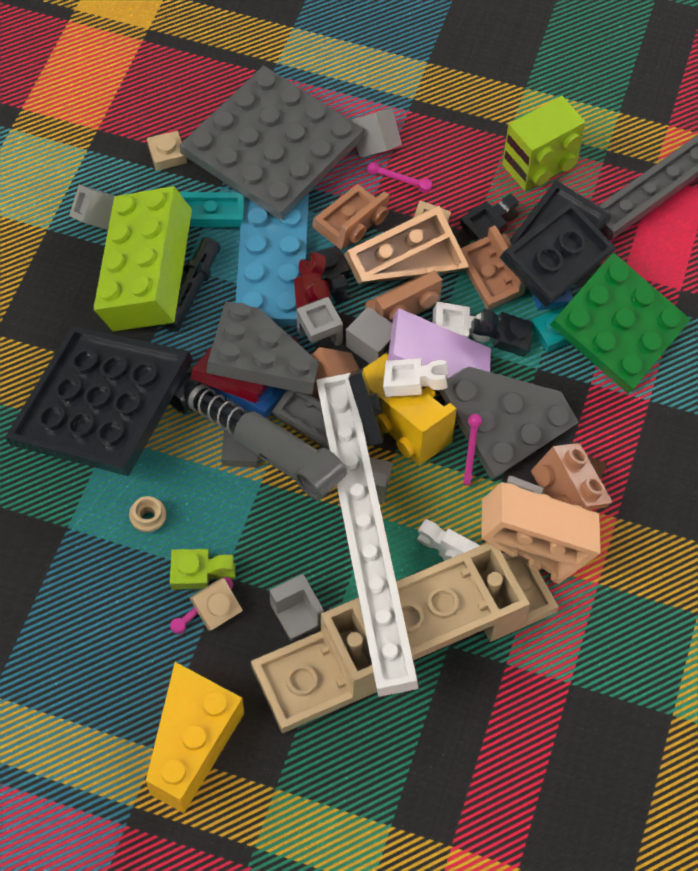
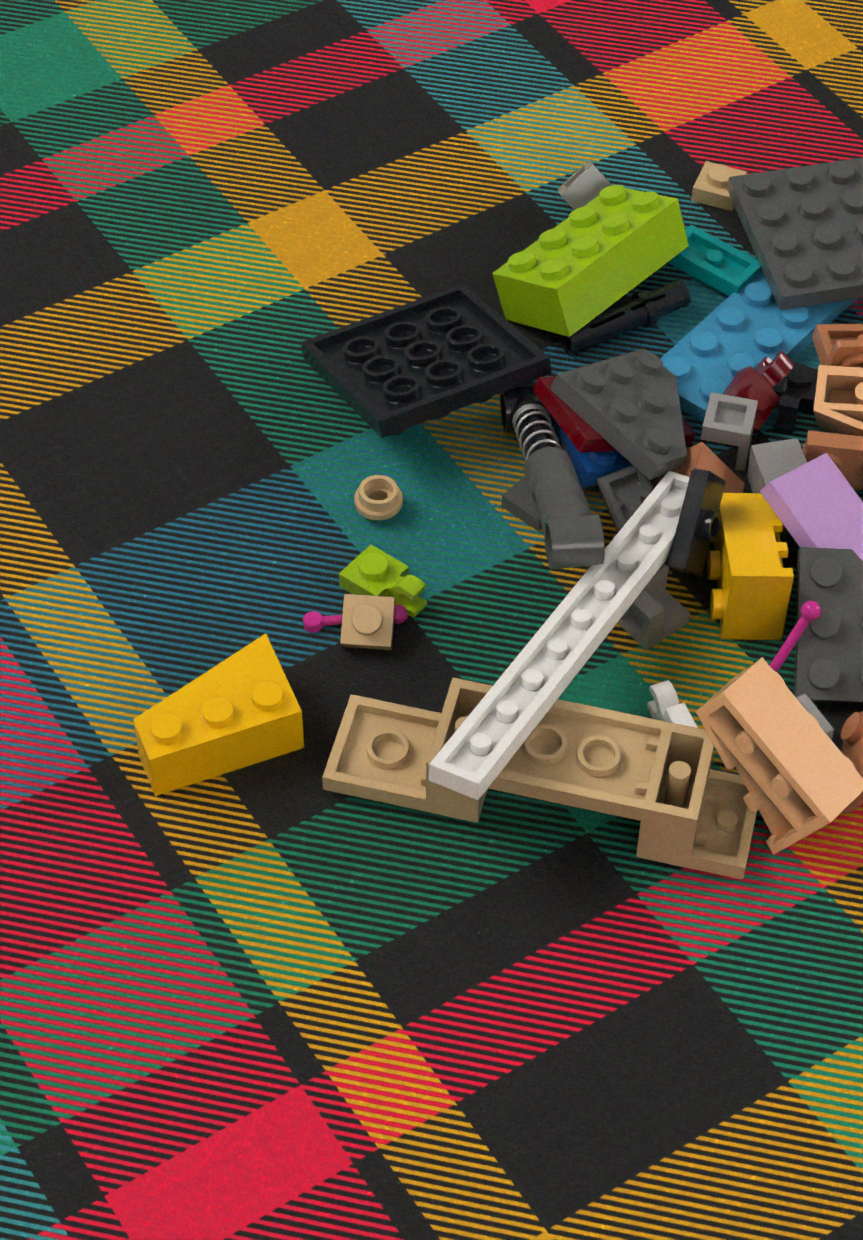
camera: 40 degrees right, 10 degrees down
(296, 607) = (443, 661): light grey panel -> none
(409, 376) = (769, 515): white plate -> none

